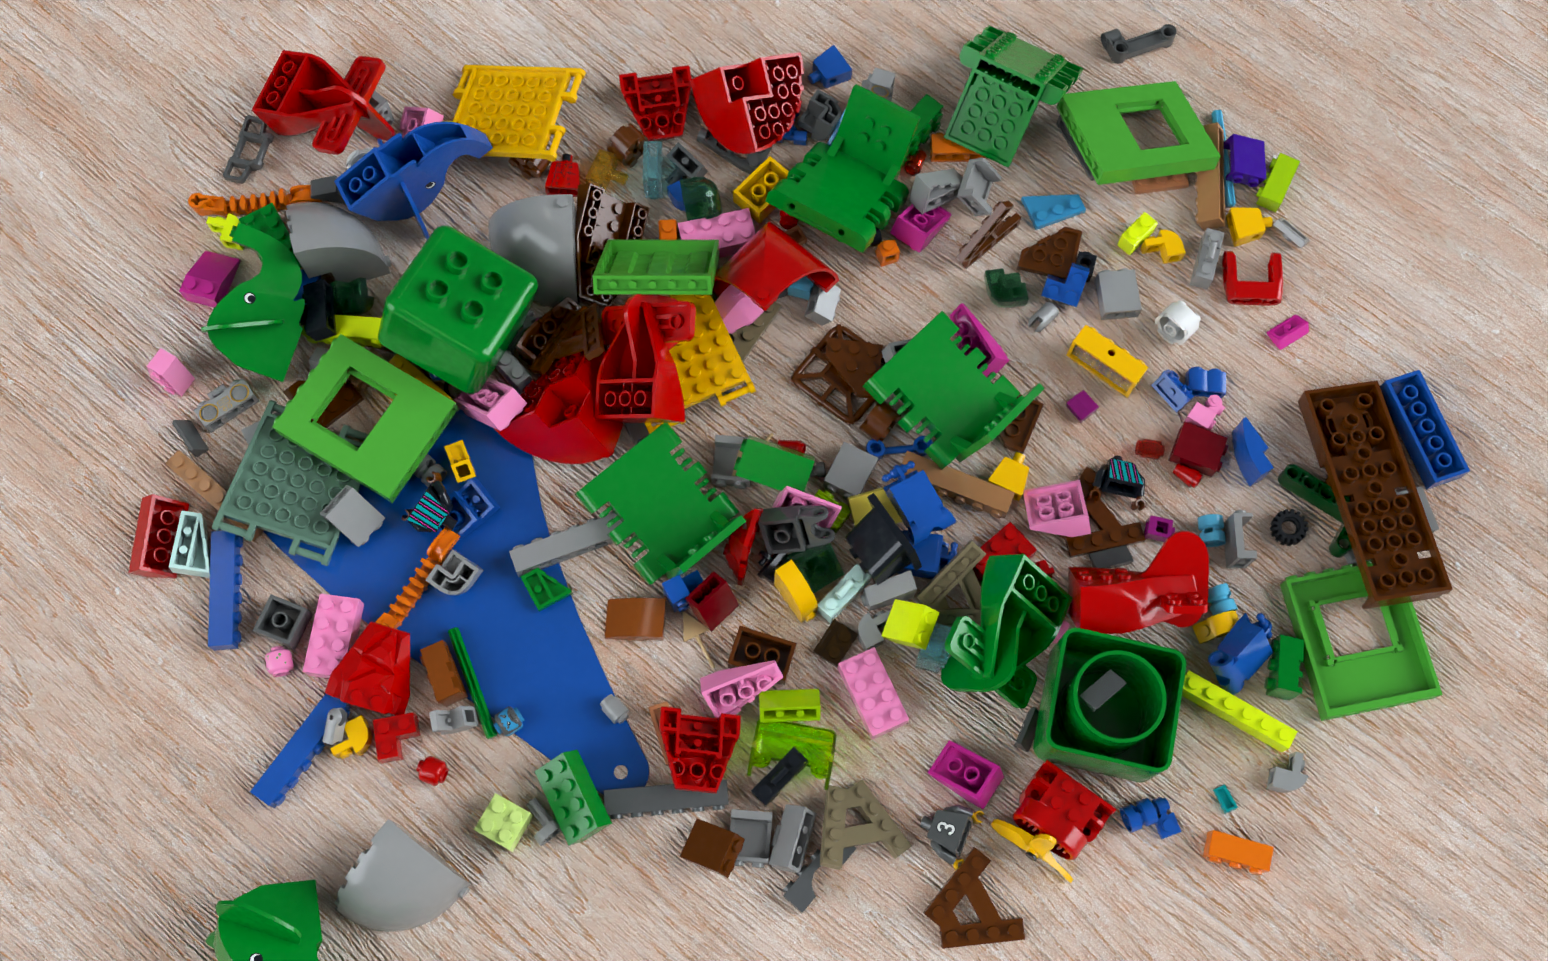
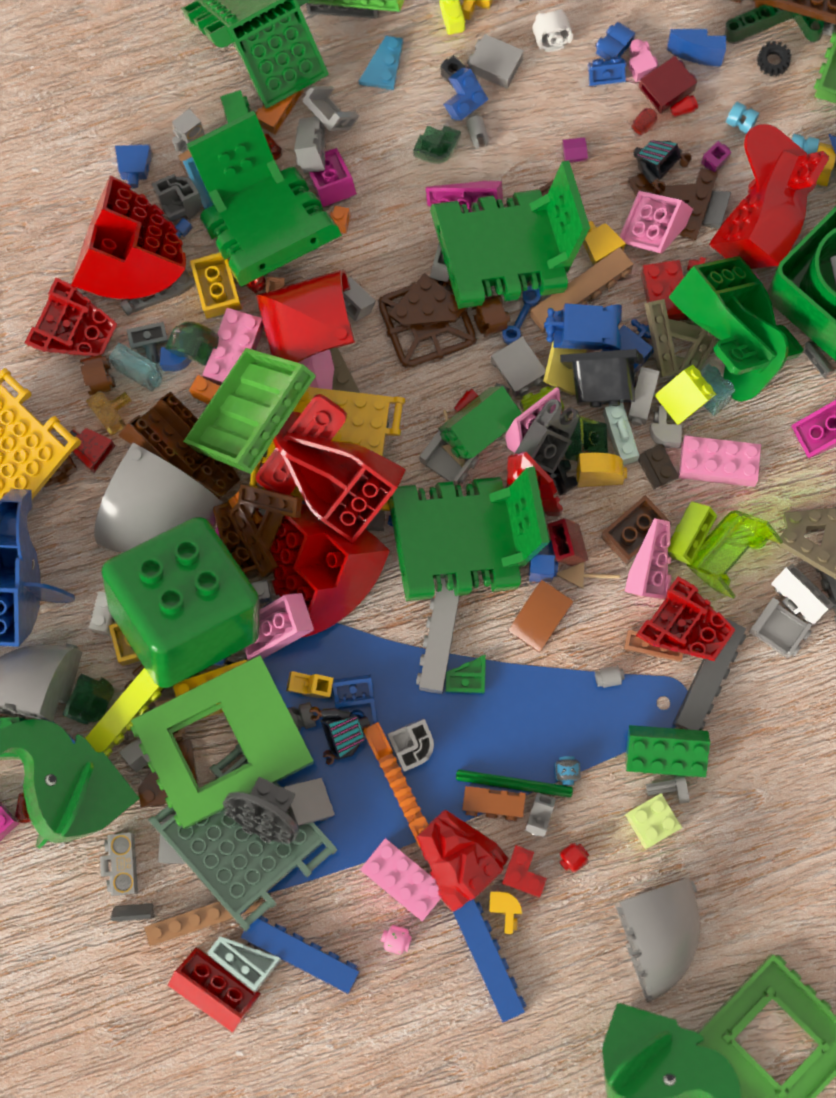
camera: 50 degrees left, 5 degrees up
(169, 373) = (61, 898): bright pink wedge -> none
(282, 622) = (363, 917): dark grey brick -> none
(318, 310) = (95, 730): black piece -> none
(321, 480) = (263, 812): none -> dark grey bracket
(335, 726) = (489, 918): light grey piece -> none
(712, 848) = (775, 661): reddish brown brick -> none
(780, 776) = (745, 574): black piece -> none
(989, 234) = (380, 122): reddish brown plate -> none
(1052, 254) = (427, 89): reddish brown plate -> none
(1107, 360) = (551, 105): yellow brick -> none
(1235, 552) = (769, 108): light grey panel -> none

